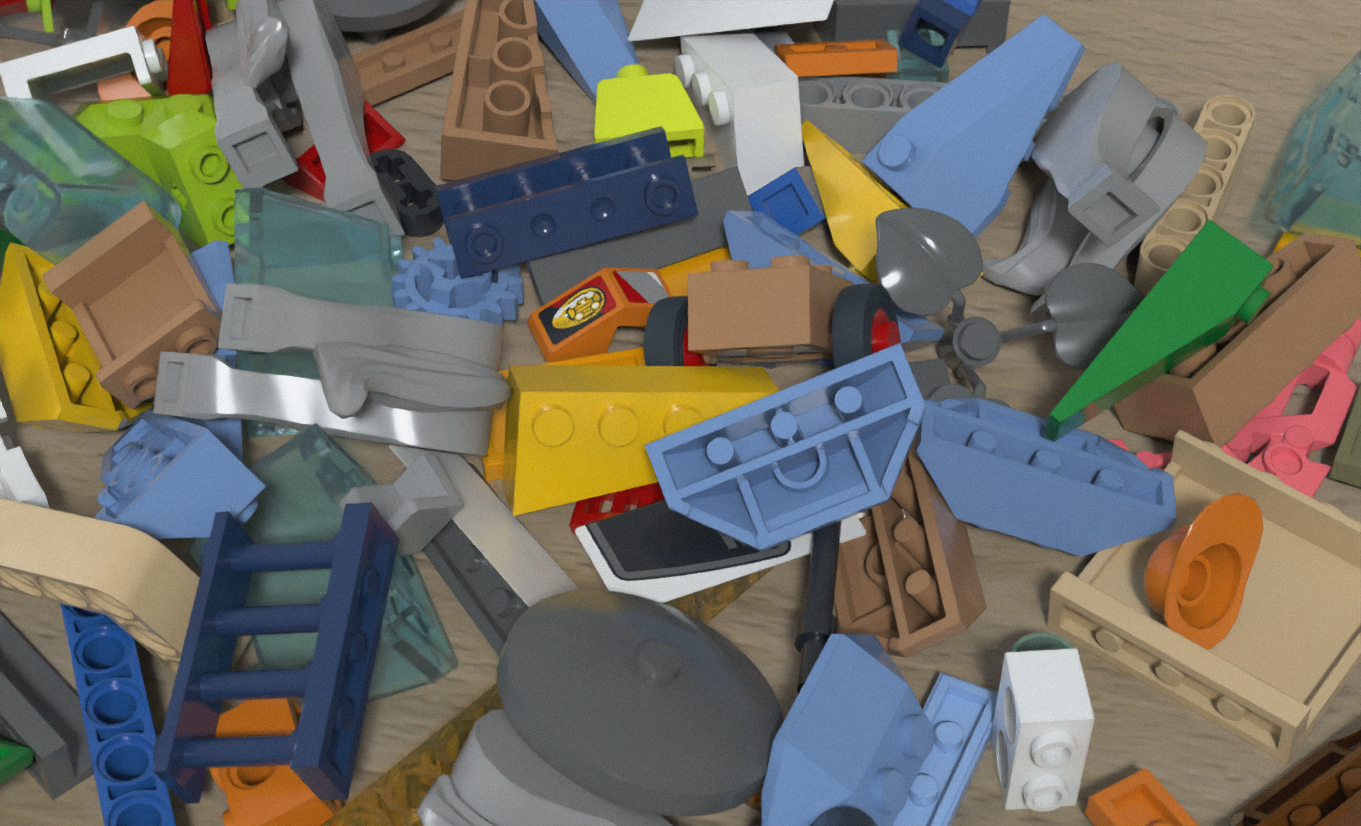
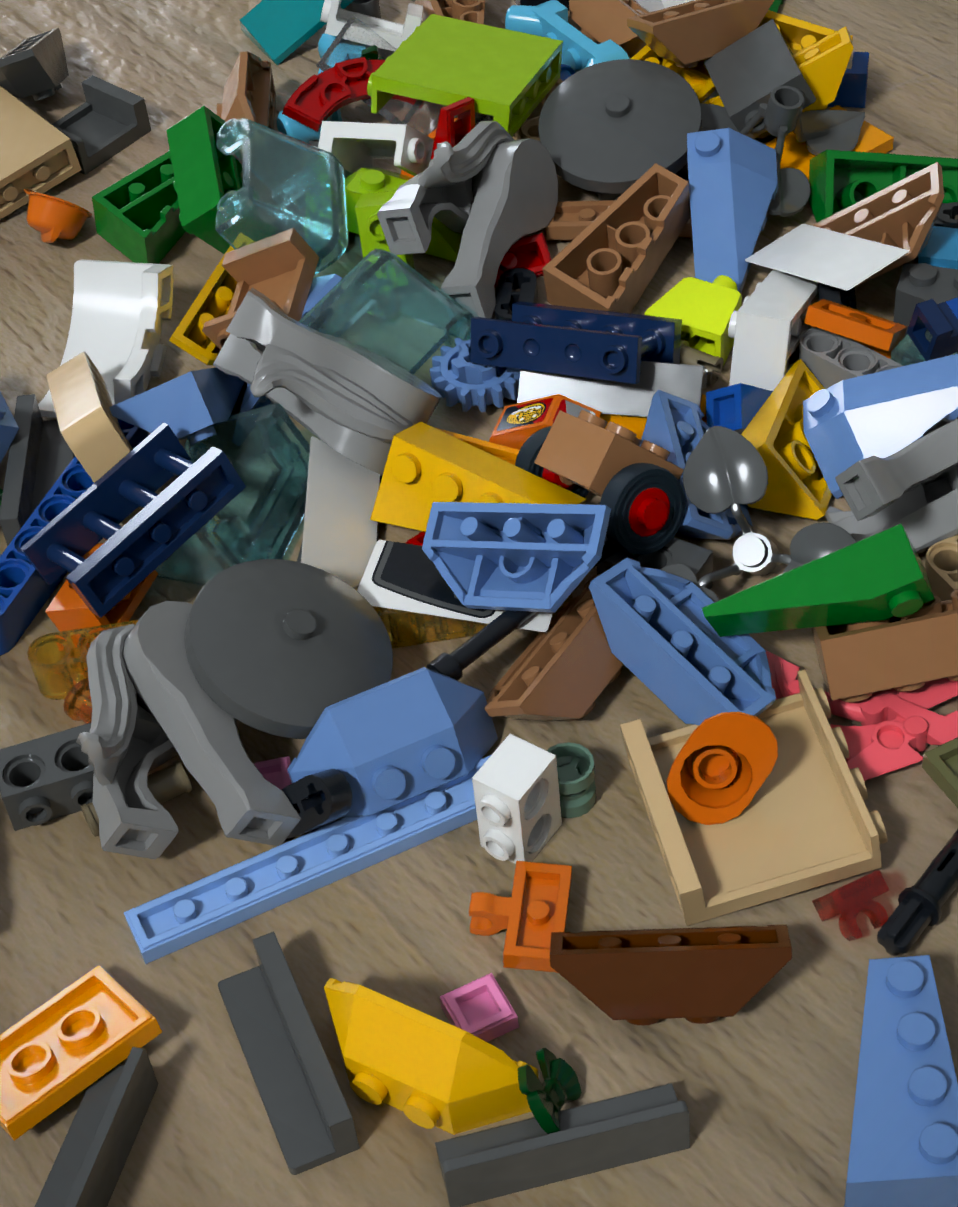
camera: 45 degrees right, 0 degrees up
(414, 504) = (280, 479): light grey panel -> none

